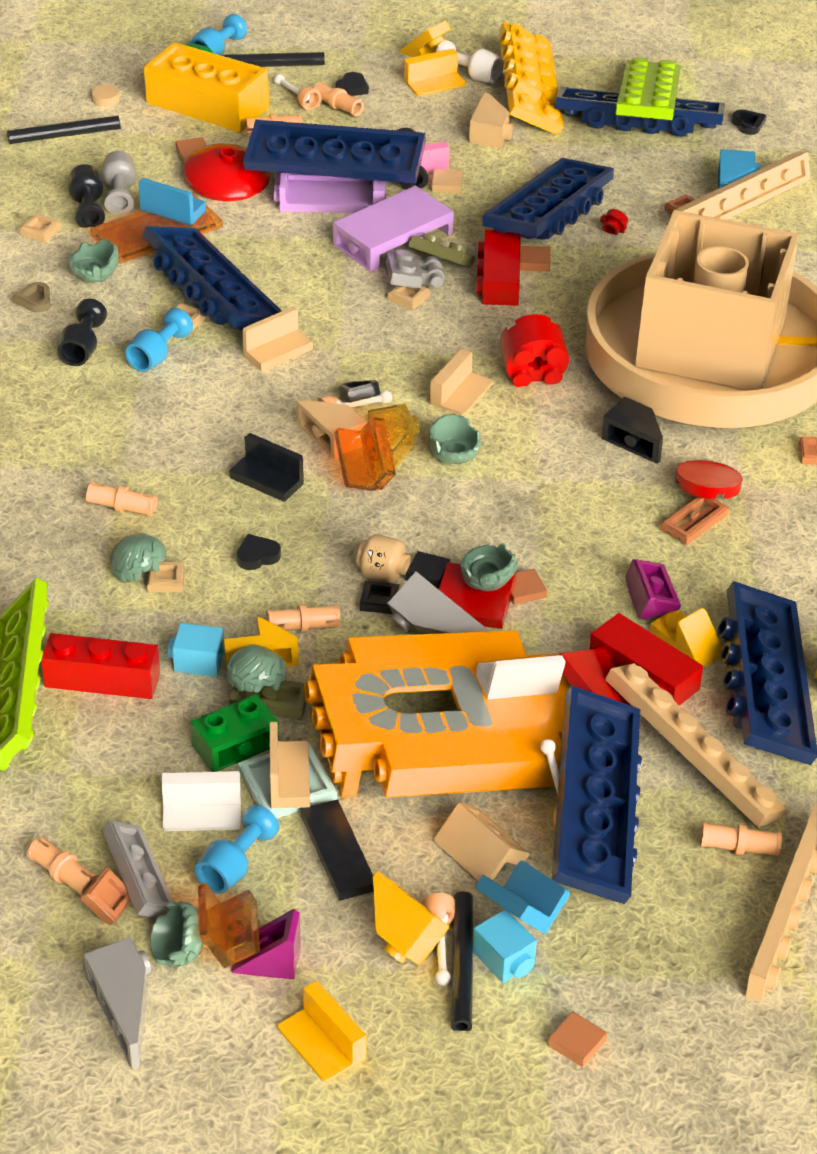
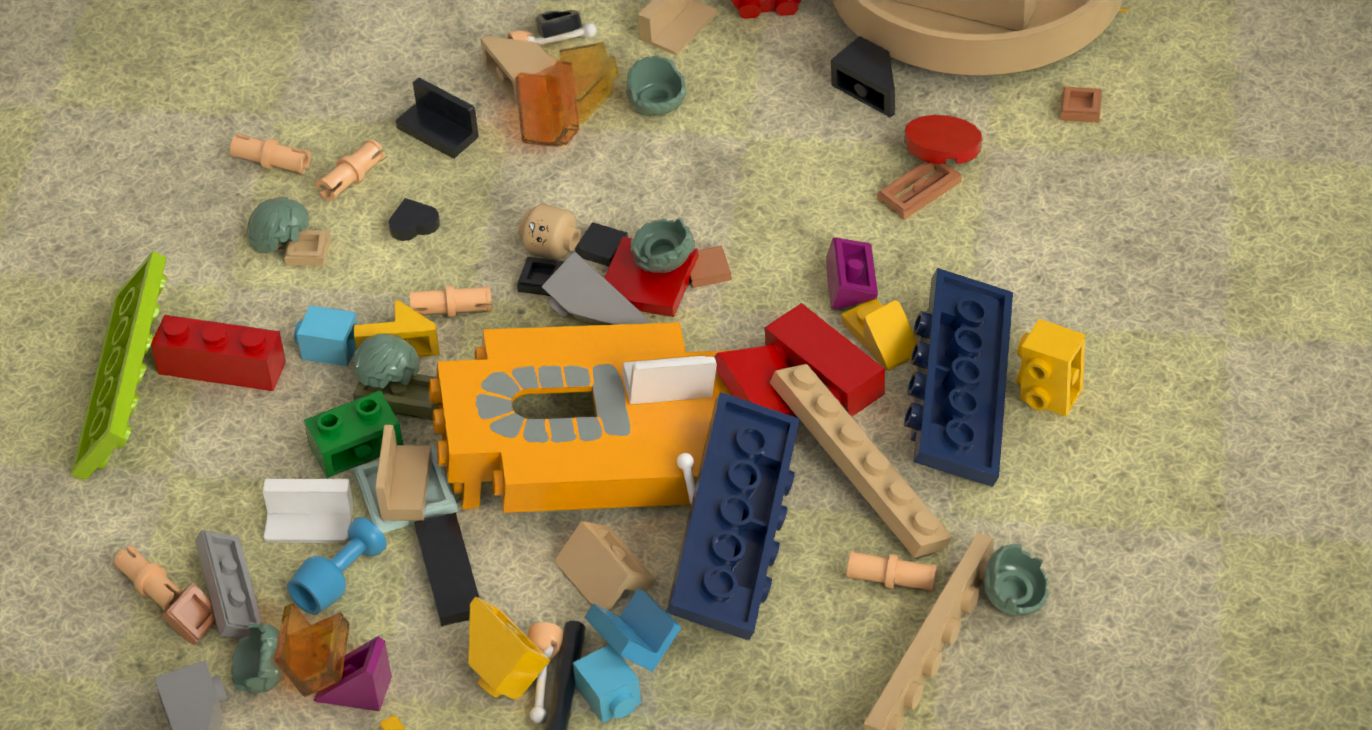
camera: 10 degrees right, 5 degrees up
(195, 511) = (350, 170): none -> light nougat pin

